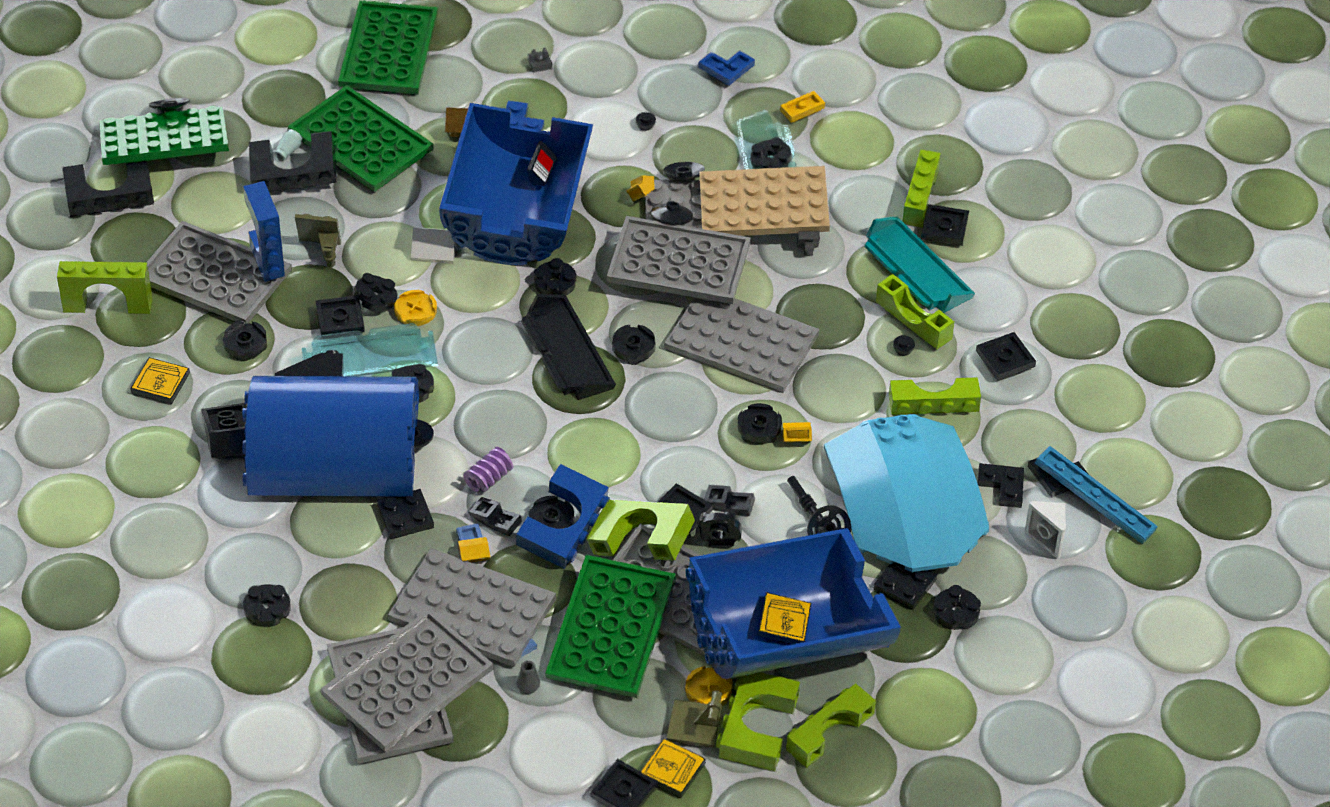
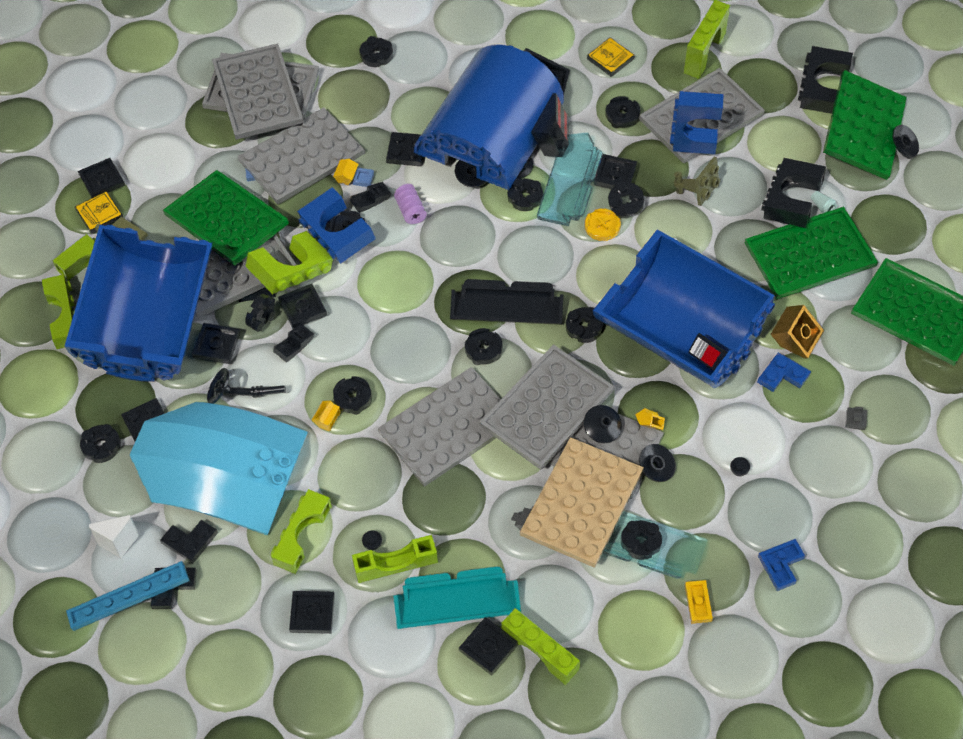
camera: 120 degrees right, 10 degrees up
(528, 678) = (219, 160): dark grey cone -> none
(784, 619) = (154, 314): yellow tile -> none

